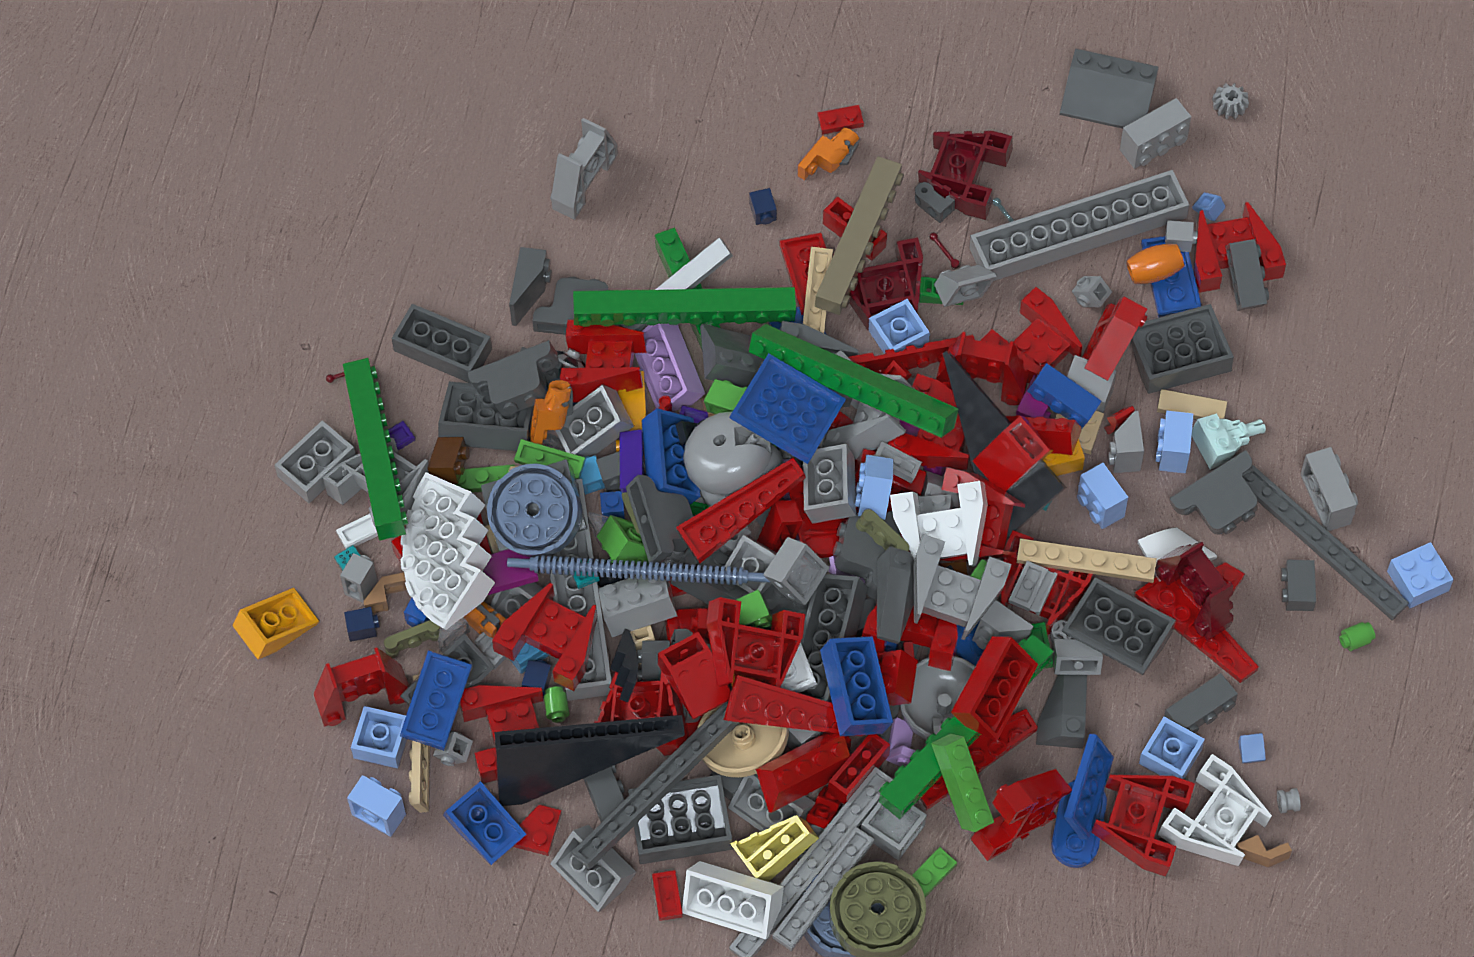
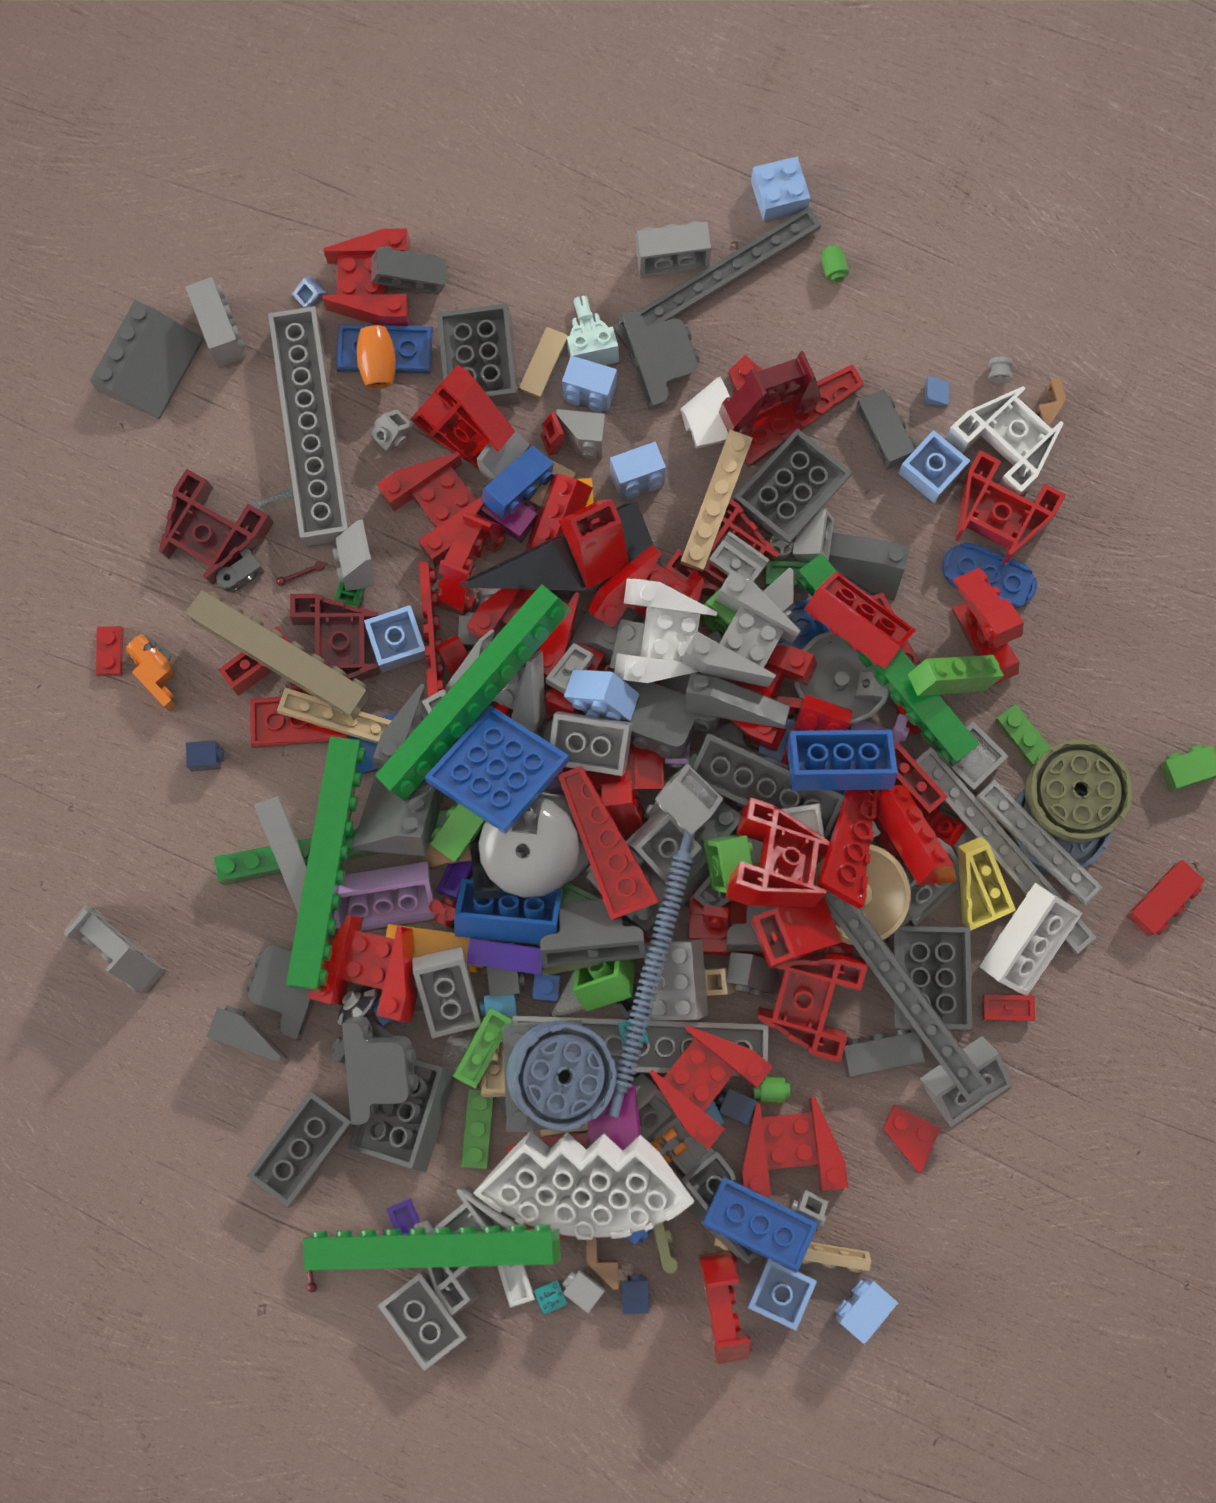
camera: 80 degrees left, 15 degrees up
(274, 622) = (614, 1395): light orange slope -> none
(449, 459) = (454, 1164): reddish brown brick -> none
(484, 823) = (900, 1193): blue slope -> none
(551, 411) = (430, 1037): orange plate -> none
(552, 757) = (855, 1104): black slope -> none
(626, 664) = (752, 1003): black slope -> none
(880, 531) = (661, 698): olive plate -> none
(1088, 787) = (968, 553): blue tile -> none
(1181, 234) = (346, 326): light grey brick -> none
(1230, 101) = (187, 233): light grey gear -> none
(1299, 585) = (769, 304): dark grey brick -> none

